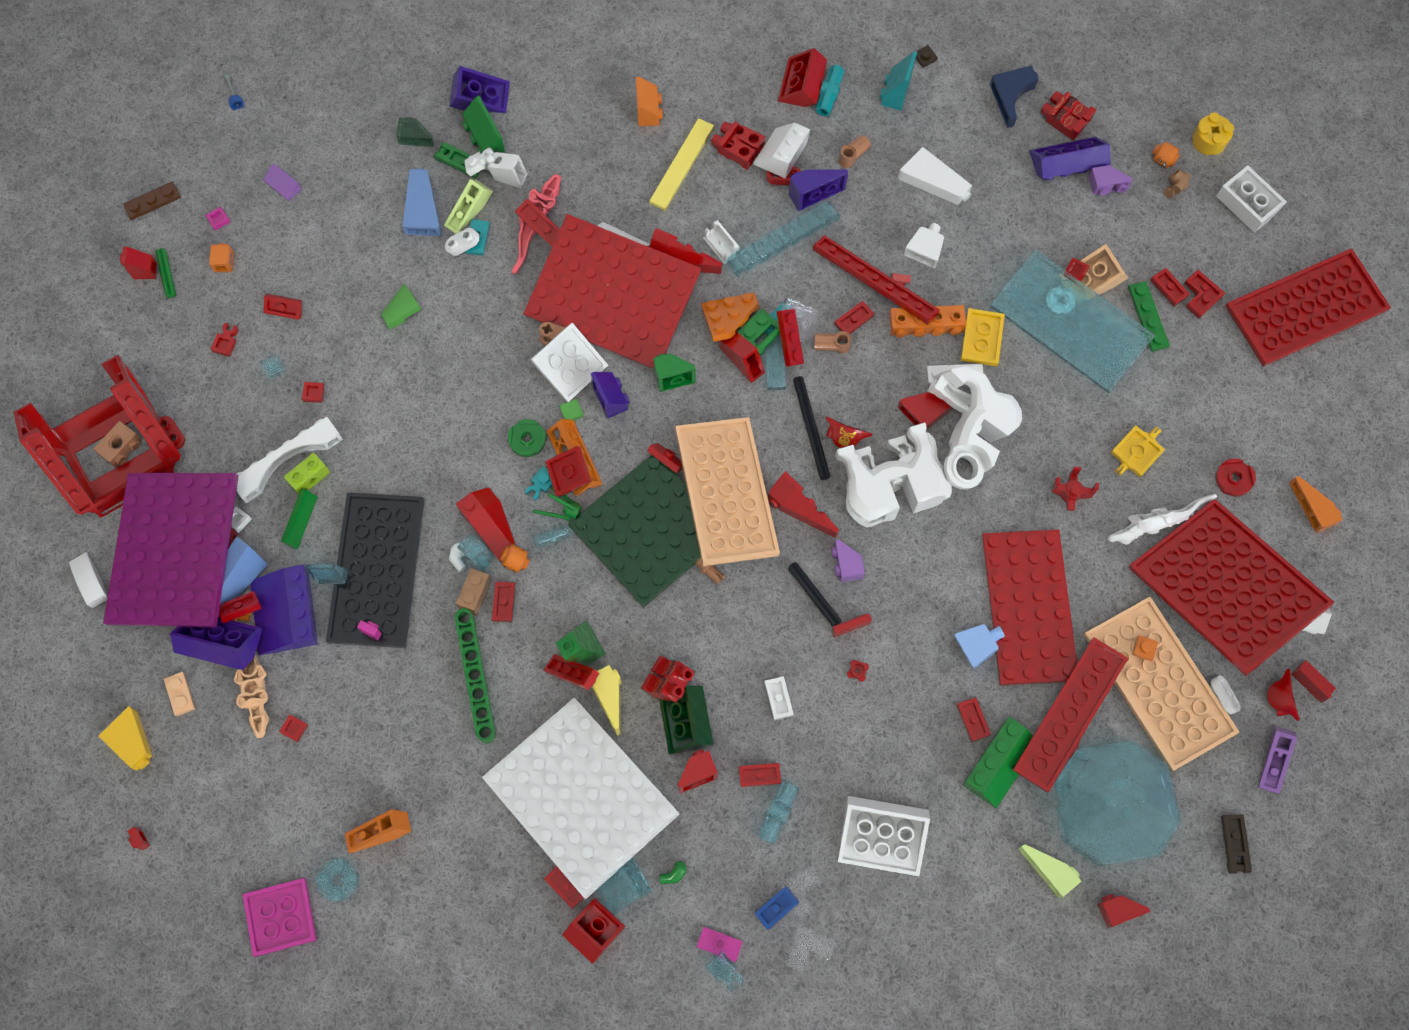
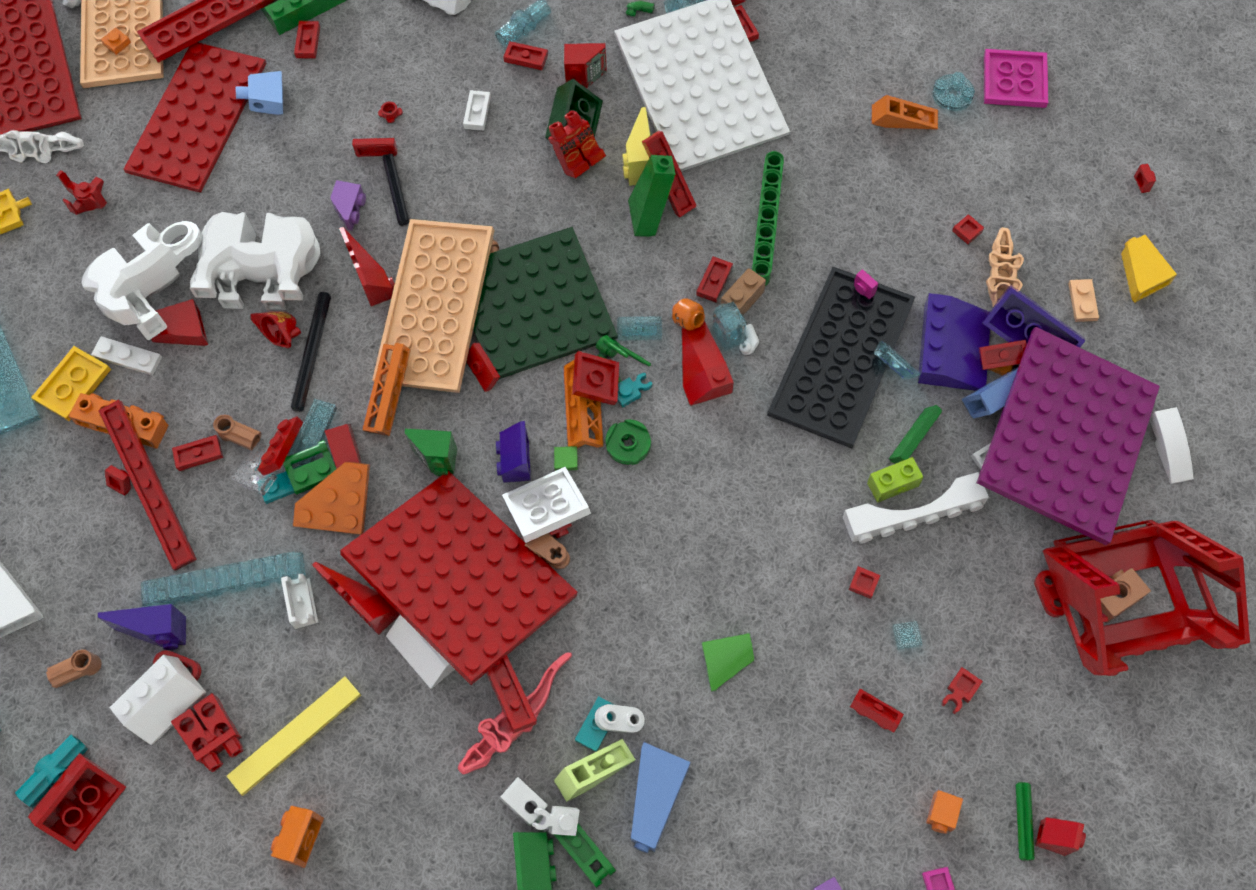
camera: 155 degrees left, 5 degrees down
(728, 411) = (390, 391): none -> orange fence
(926, 245) = (63, 510): white torso -> none

